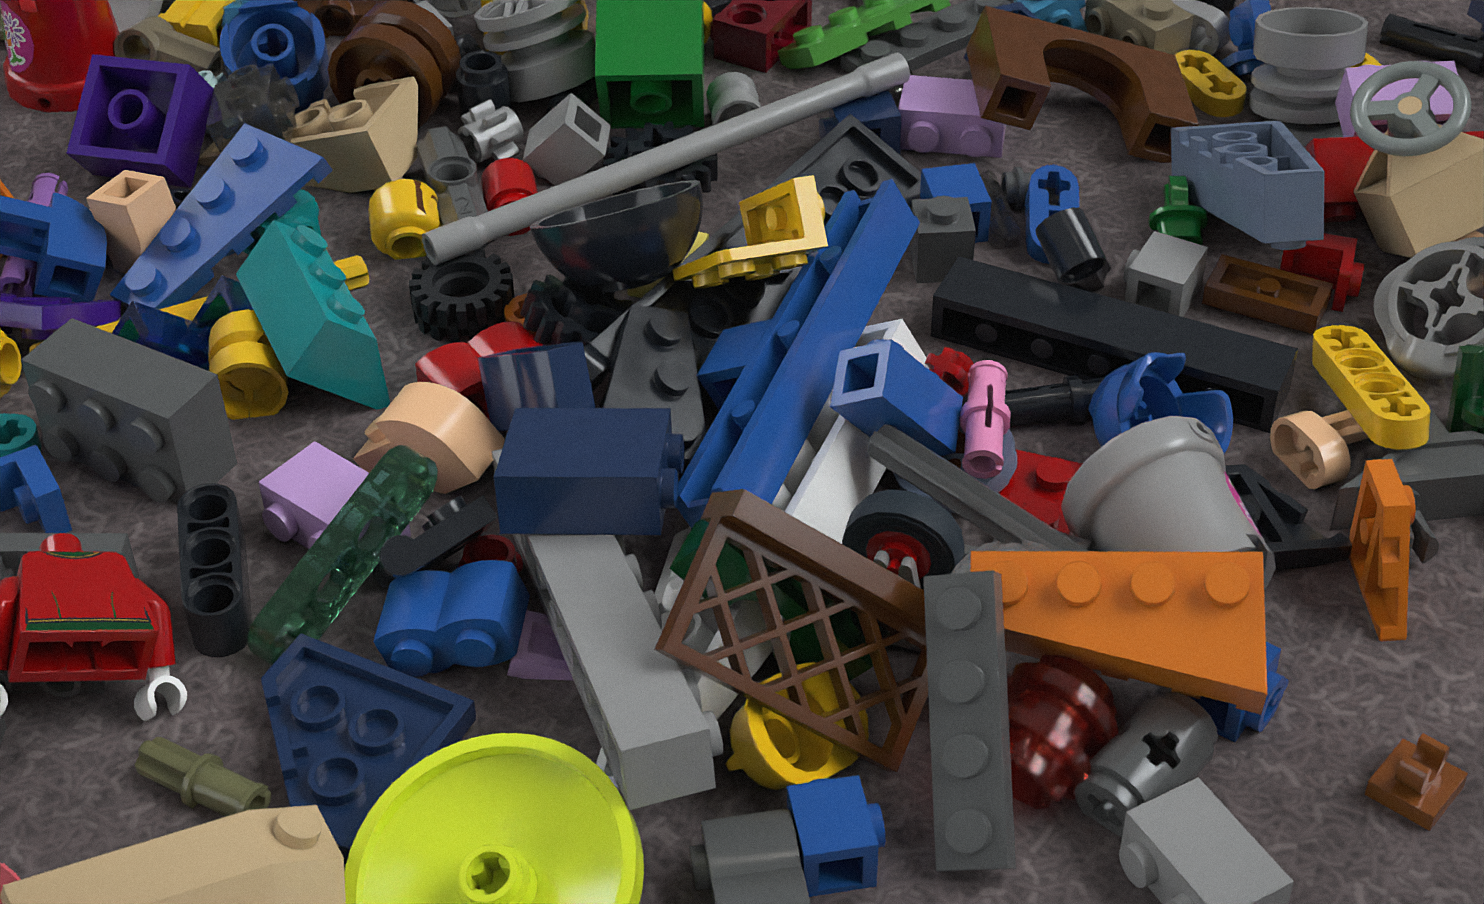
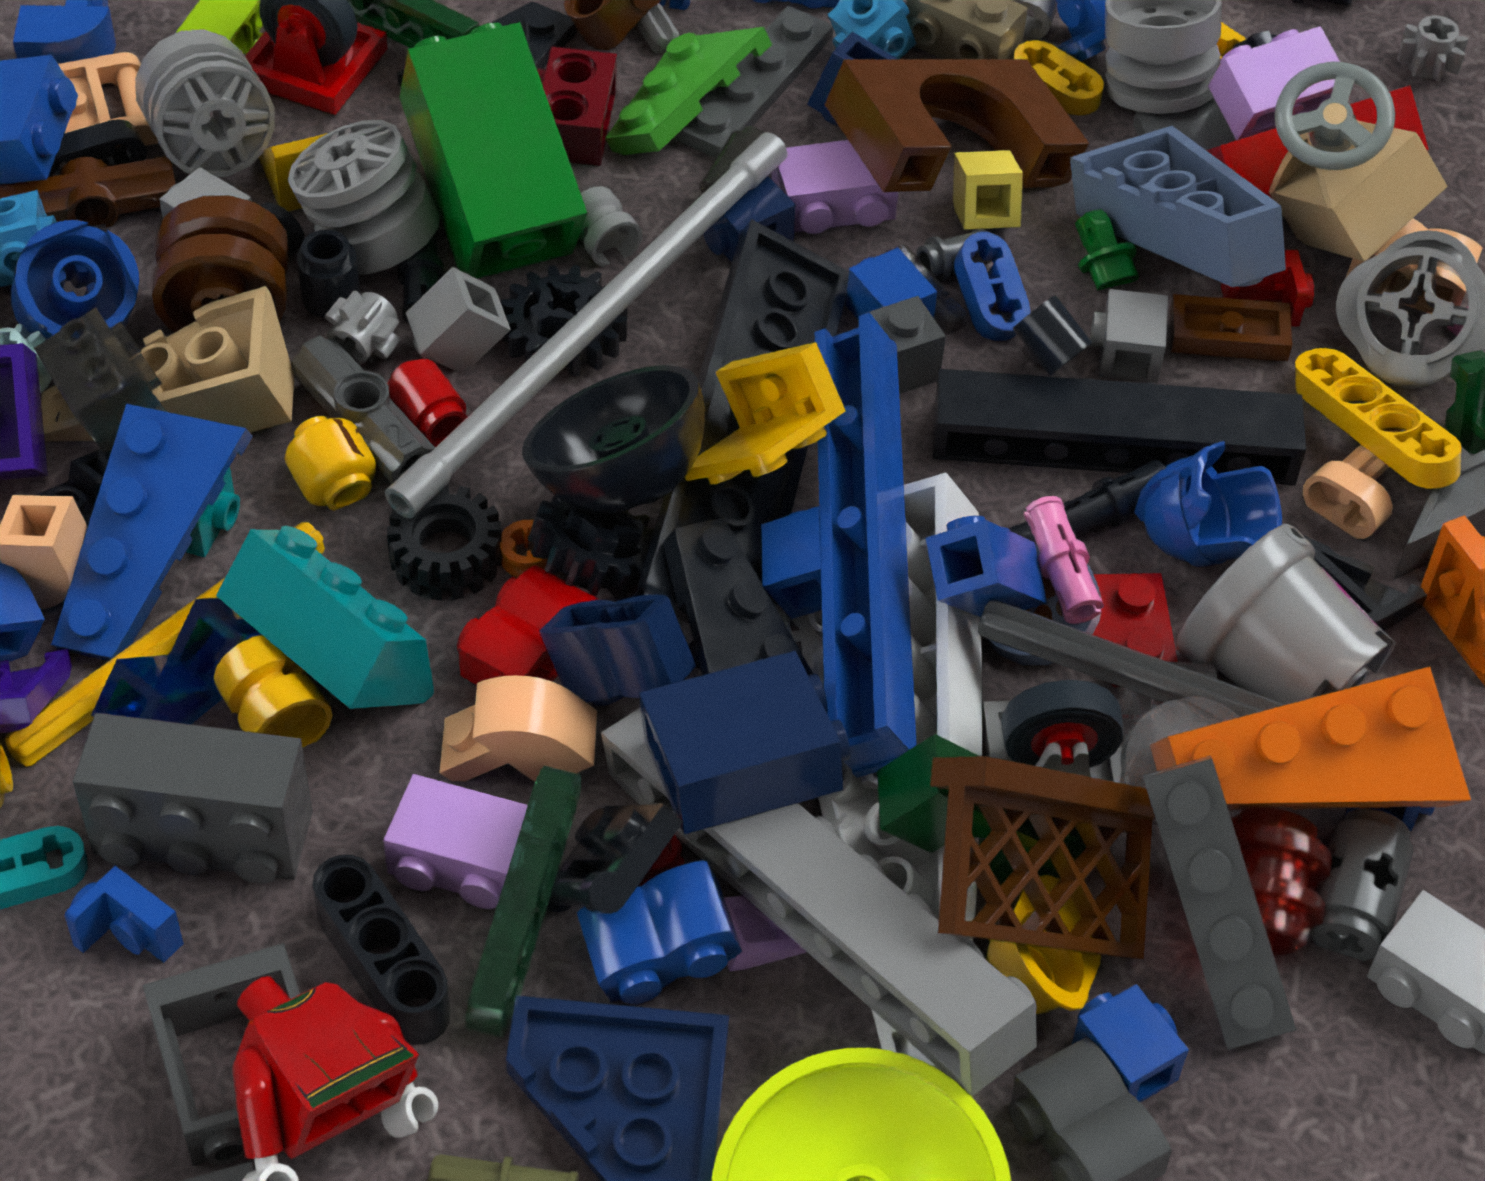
camera: 25 degrees left, 10 degrees up
(951, 368) = (1001, 508): red axle -> none
(1087, 142) = (987, 189): none -> light yellow brick

